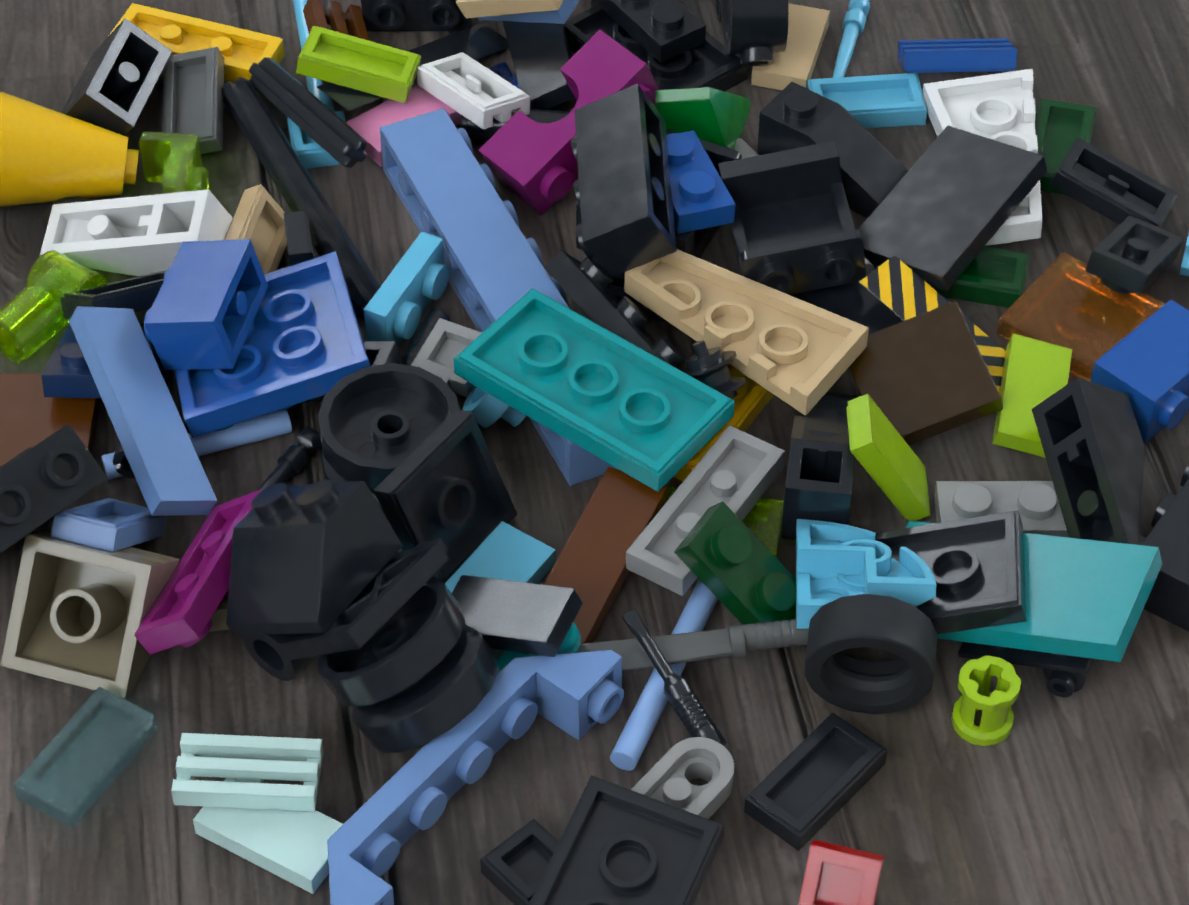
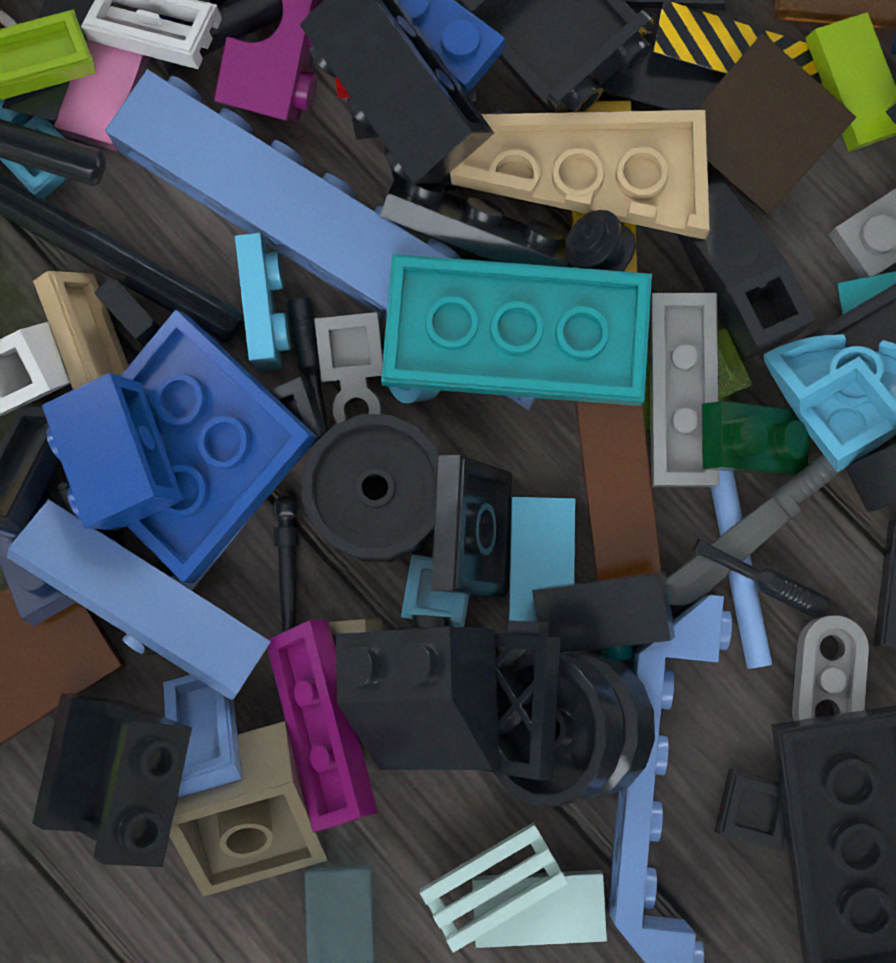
camera: 30 degrees left, 35 degrees up
(887, 458) = (801, 244): lime tile -> none

